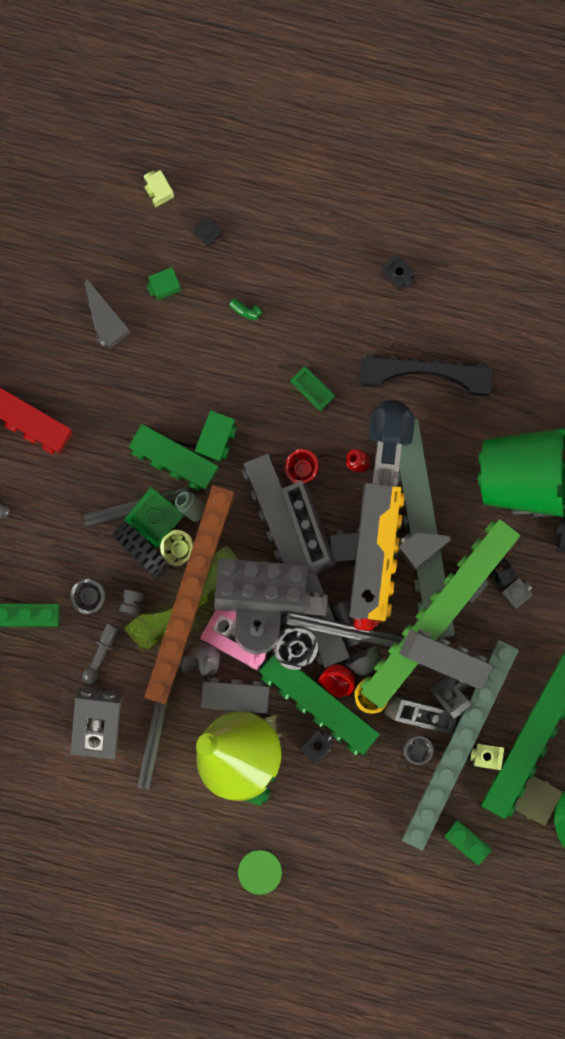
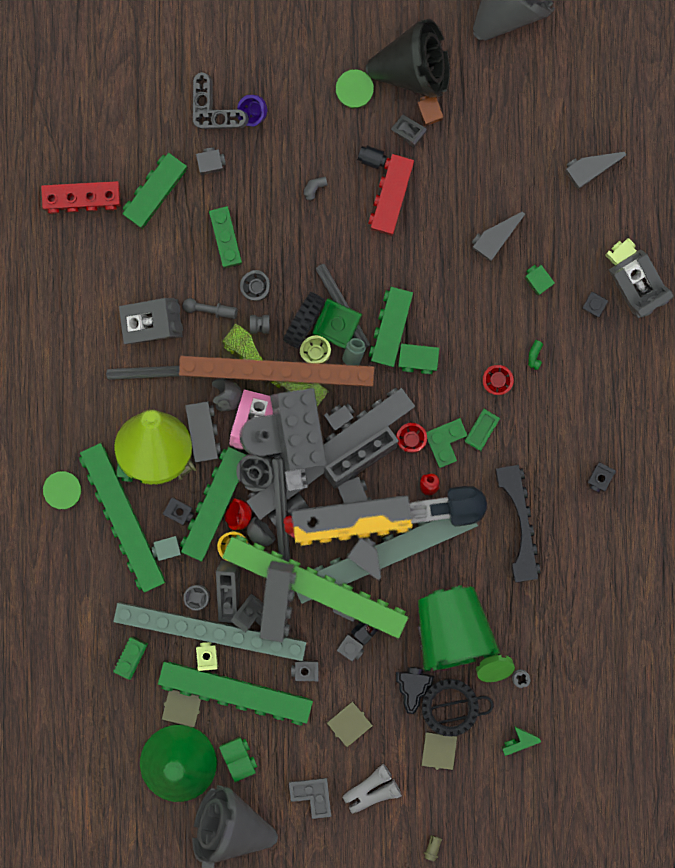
camera: 75 degrees right, 5 degrees up
(56, 200) = (588, 168): none -> dark grey slope
(213, 169) = (647, 297): none -> dark grey brick
(257, 540) = (340, 416): none -> dark grey brick
(262, 356) = (498, 380): none -> red helmet
(308, 811) = (122, 517): none -> green brick
(314, 437) = (440, 440): none -> green plate
(355, 770) = (166, 548): none -> sand green brick
(530, 641) = (312, 667): none -> dark grey brick

